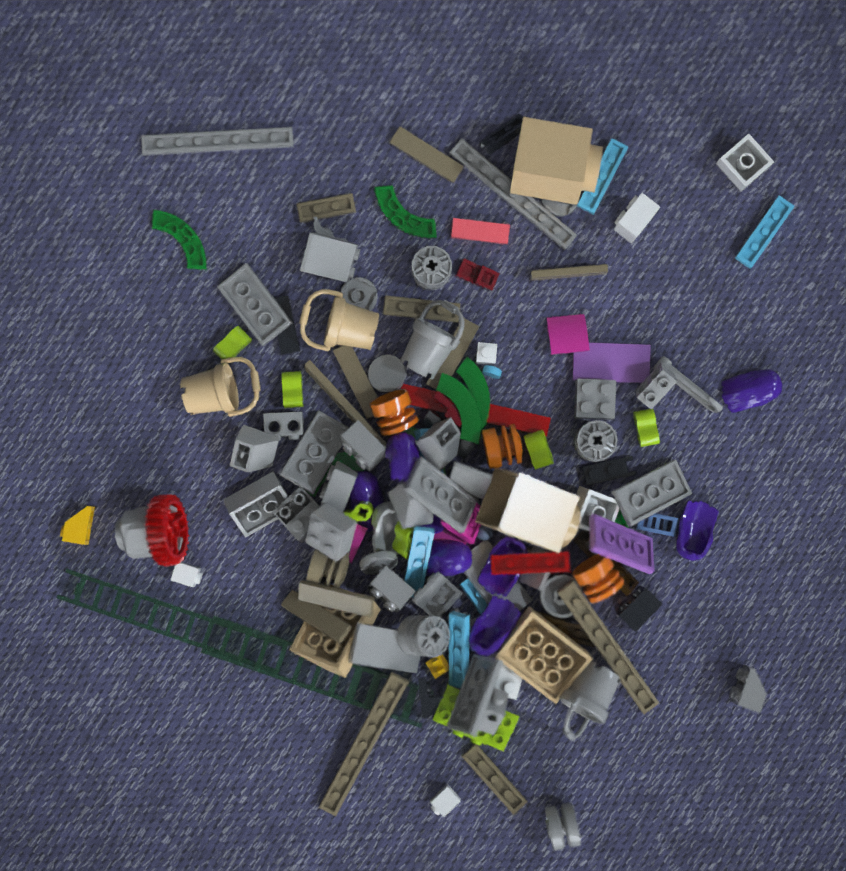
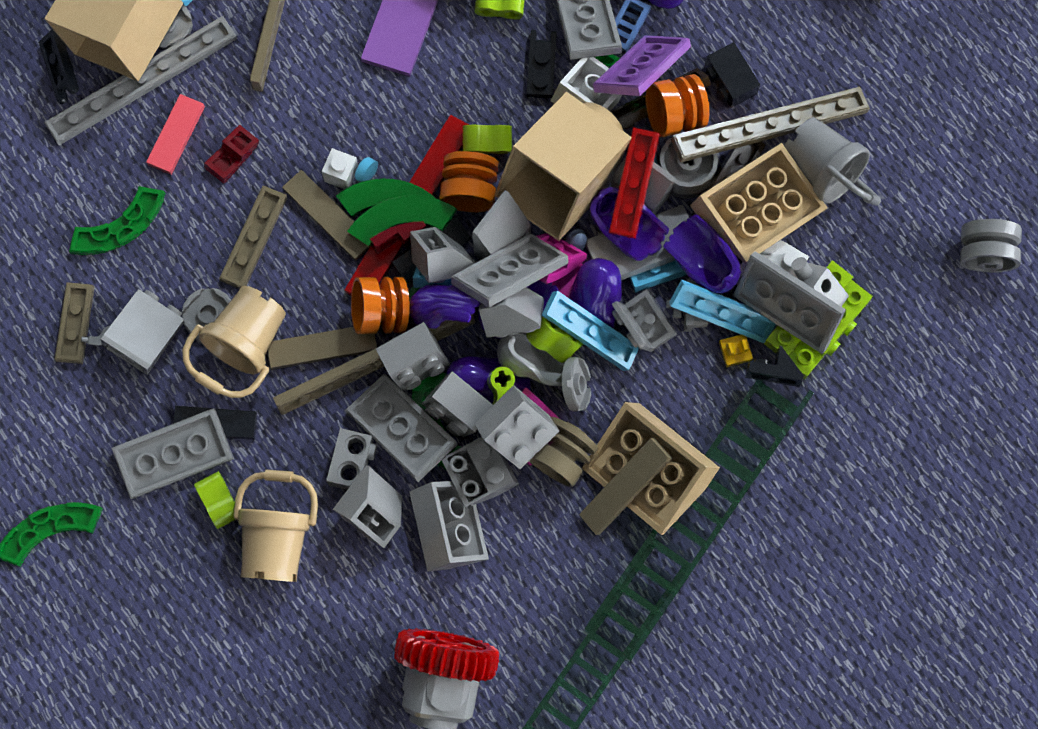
camera: 75 degrees left, 10 degrees down
(186, 574) = (516, 652): white brick -> none
(292, 389) = (305, 435): lime axle -> none
(336, 598) = (608, 450): dark tan tile -> none
(363, 743) = (816, 475): dark tan tile -> none
(381, 649) = (694, 404): light grey tile -> none
(387, 373) = (325, 305): light grey tile -> none
(390, 590) = (617, 378): light grey slope -> none
(423, 635) = (691, 350): light grey wheel -> none
(424, 276) = (210, 216): light grey wheel -> none
(426, 154) = (50, 173): dark tan tile -> none
(430, 344) = (303, 230): light grey piece -> none
(444, 801) = (919, 390): white brick -> none
(494, 778) = (905, 320): dark tan tile -> none
(567, 334) = (348, 63): dark pink slope -> none
(584, 441) = (495, 77): light grey wheel -> none
(595, 399) = (443, 52): light grey brick -> none

